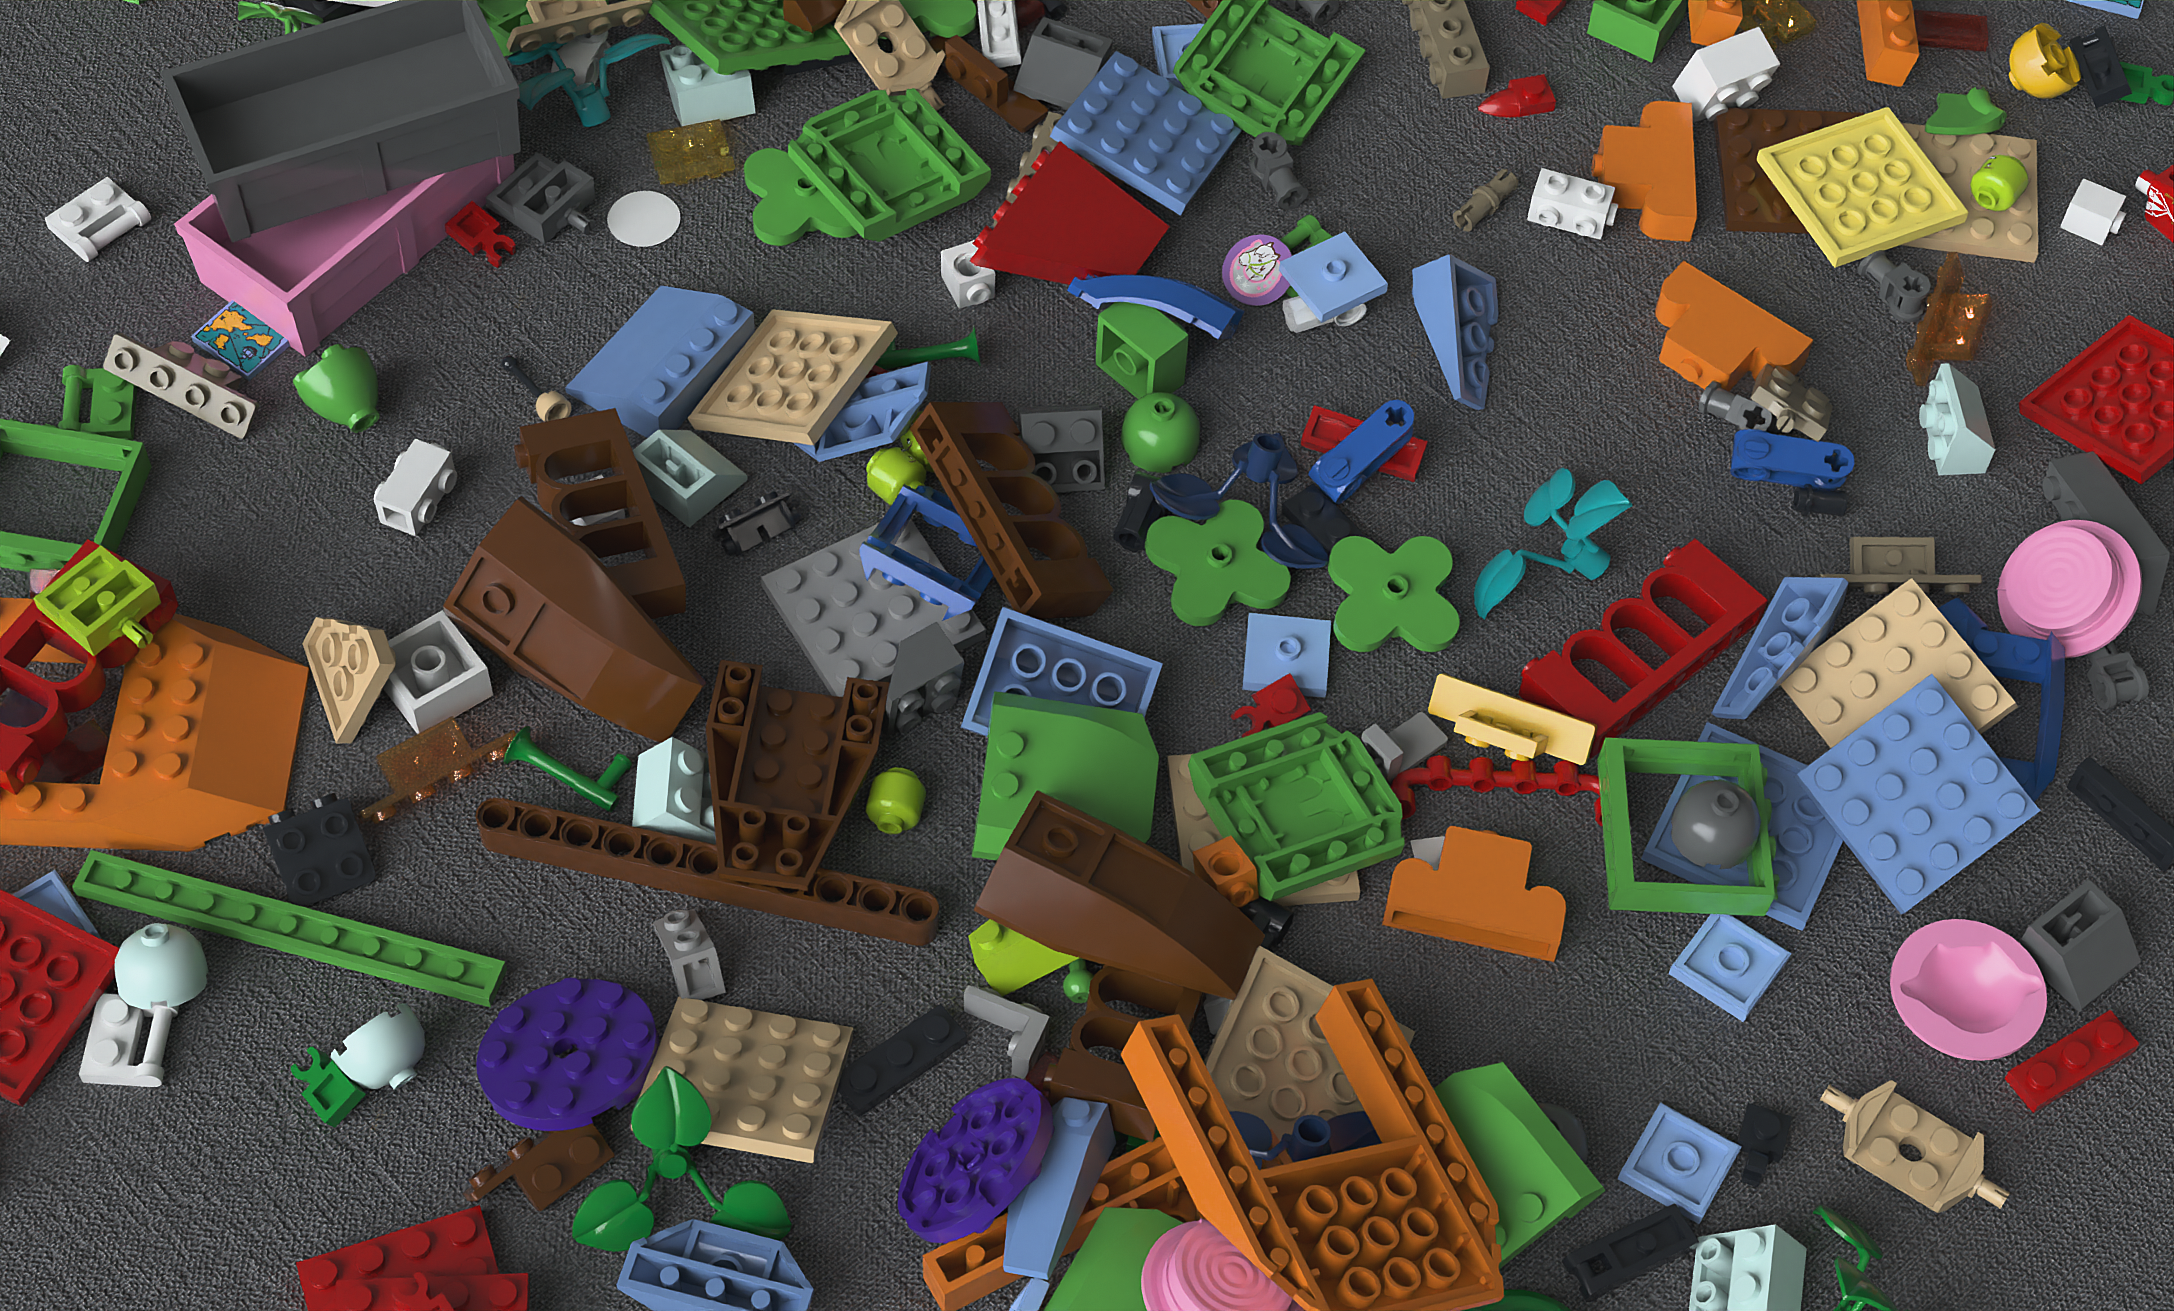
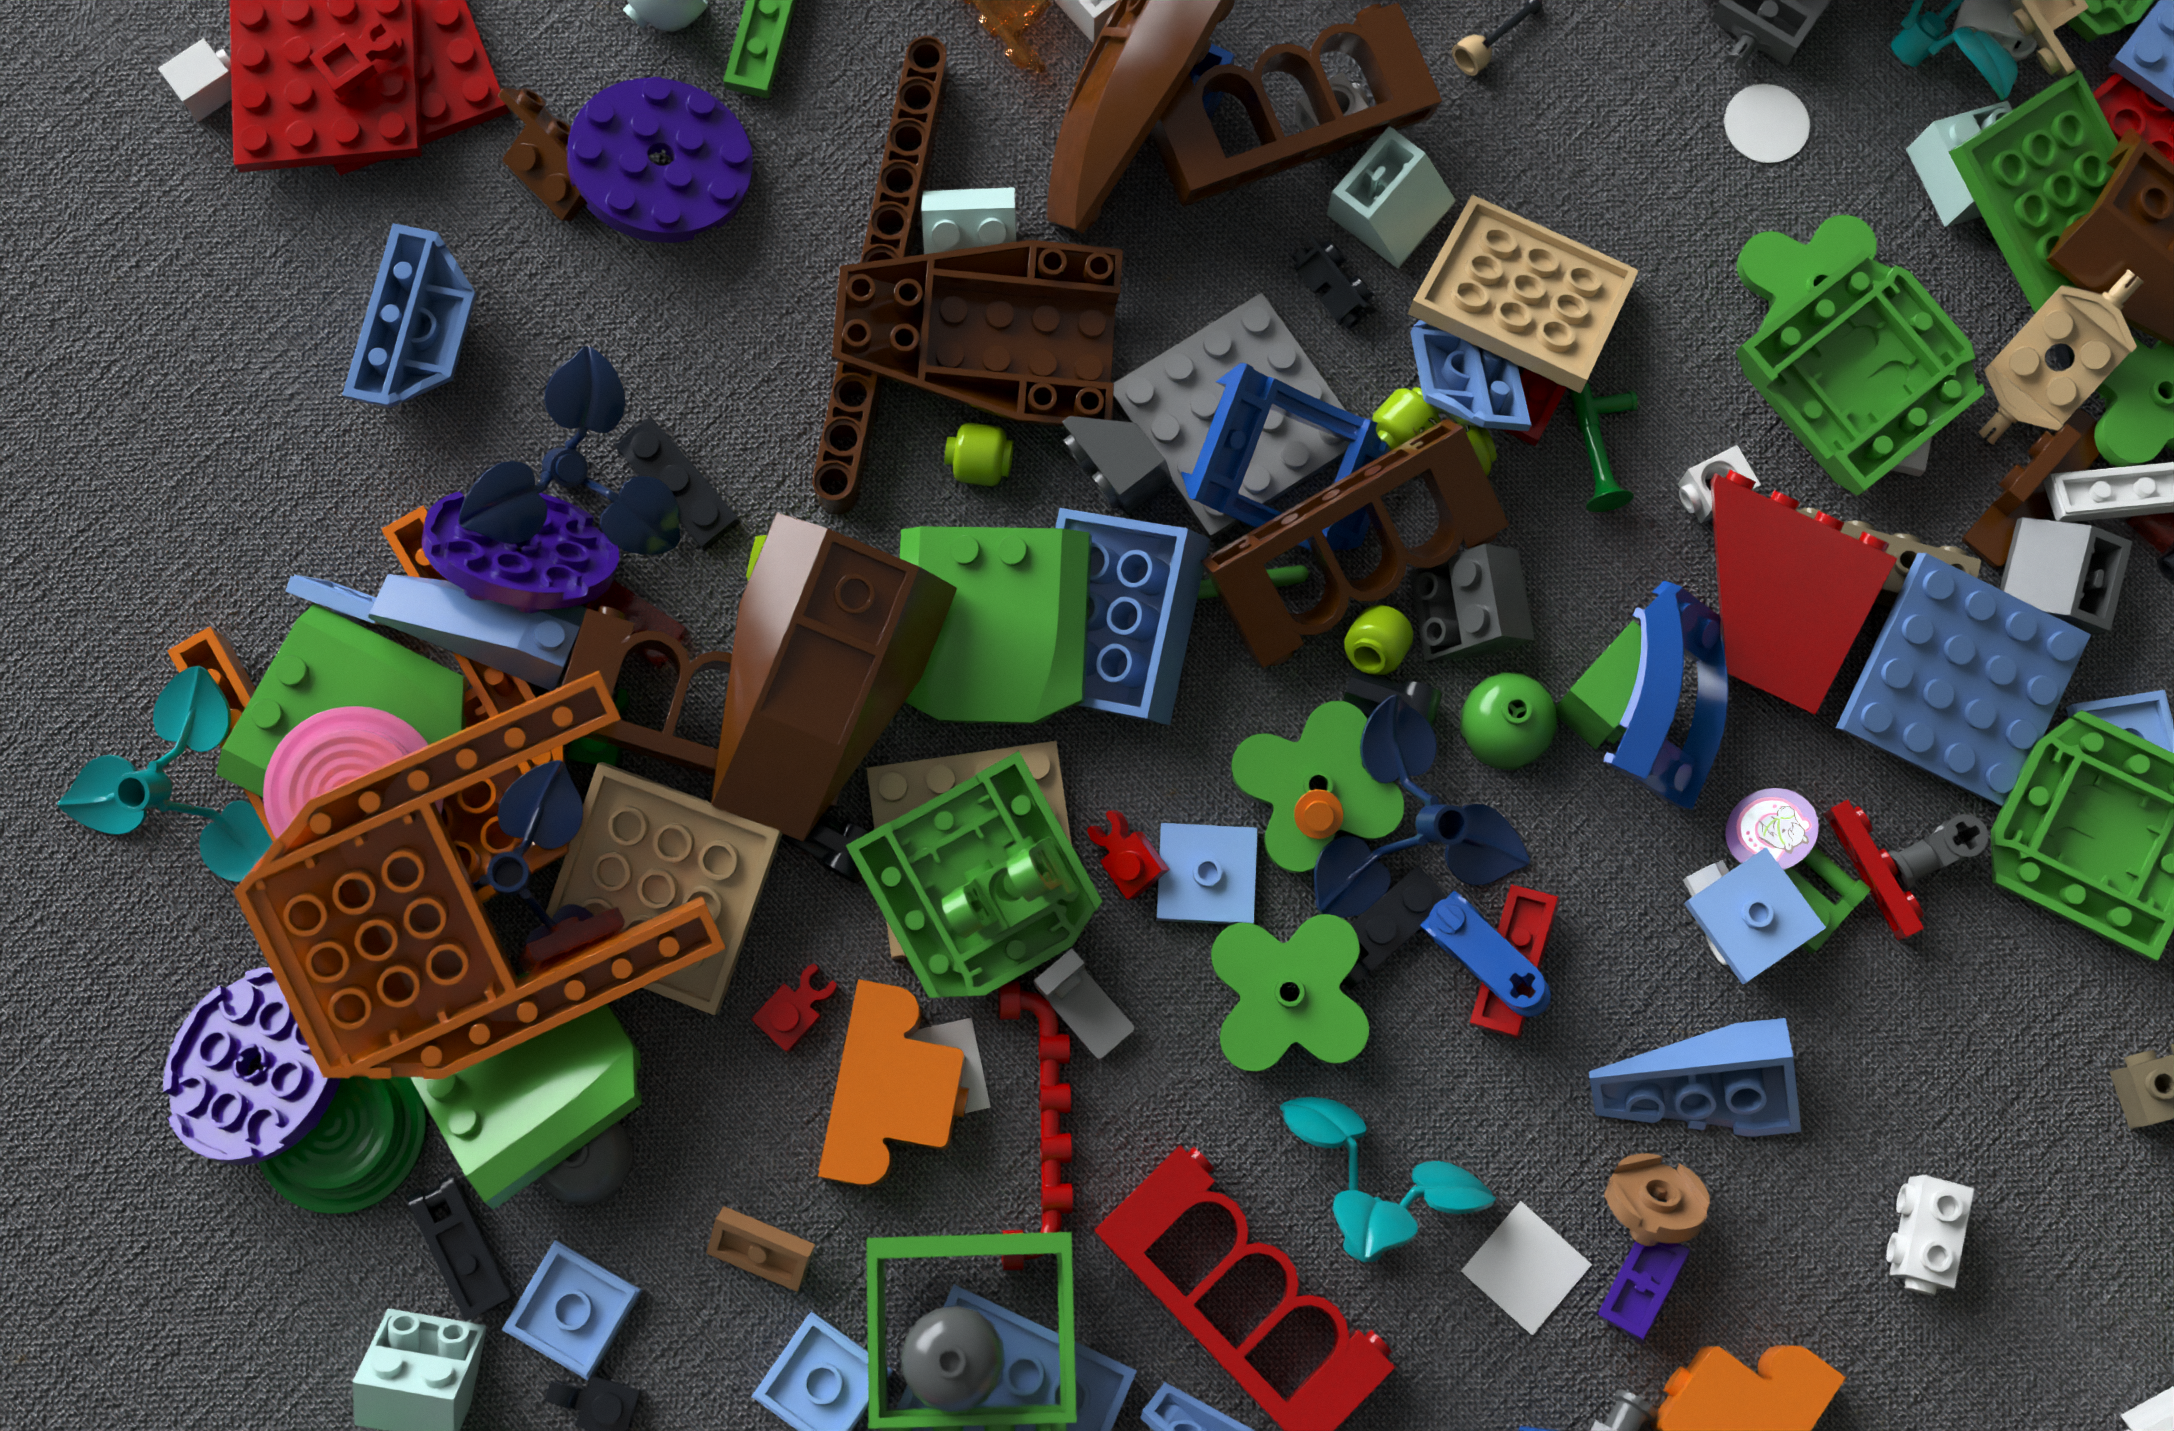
camera: 90 degrees right, 20 degrees up
(598, 791) = (979, 158): green piece -> none
(664, 358) = (1551, 161): medium blue slope -> none
(668, 1121) = (535, 235): green plant -> none
(690, 152) = (1880, 155): clear yellow plate -> none
(690, 955) = (785, 258): light grey bracket -> none
(759, 1072) = (645, 308): tan plate -> none
(938, 1151) = (508, 504): none -> dark blue plant
(1026, 1020) = (688, 604): light grey bracket -> none
(1091, 510) = (1378, 640): none -> lime head
(1227, 871) = (886, 780): orange brick -> none
(1246, 552) = (1318, 814): none -> orange plate
(1285, 212) = (1875, 869): none -> red plate
(1313, 736) = (986, 906): none -> bright green brick
(1355, 1113) = (570, 938): none -> clear red plate
(1407, 978) = (790, 1013): none -> red plate
(1485, 200) = (1932, 1122): dark tan pin -> none
(1510, 722) = (1109, 1125): yellow bracket -> none
(1521, 98) = (2121, 1176): red plate -> none
(1572, 361) = (1650, 1219): none -> medium nougat plate
(1606, 457) = (1526, 1267): none -> white sticker
(1620, 377) = (1643, 1288): none -> dark purple hinge
(1620, 1001) = (760, 1248): none -> medium nougat plate
(1653, 169) = (2015, 1348): orange brick -> none

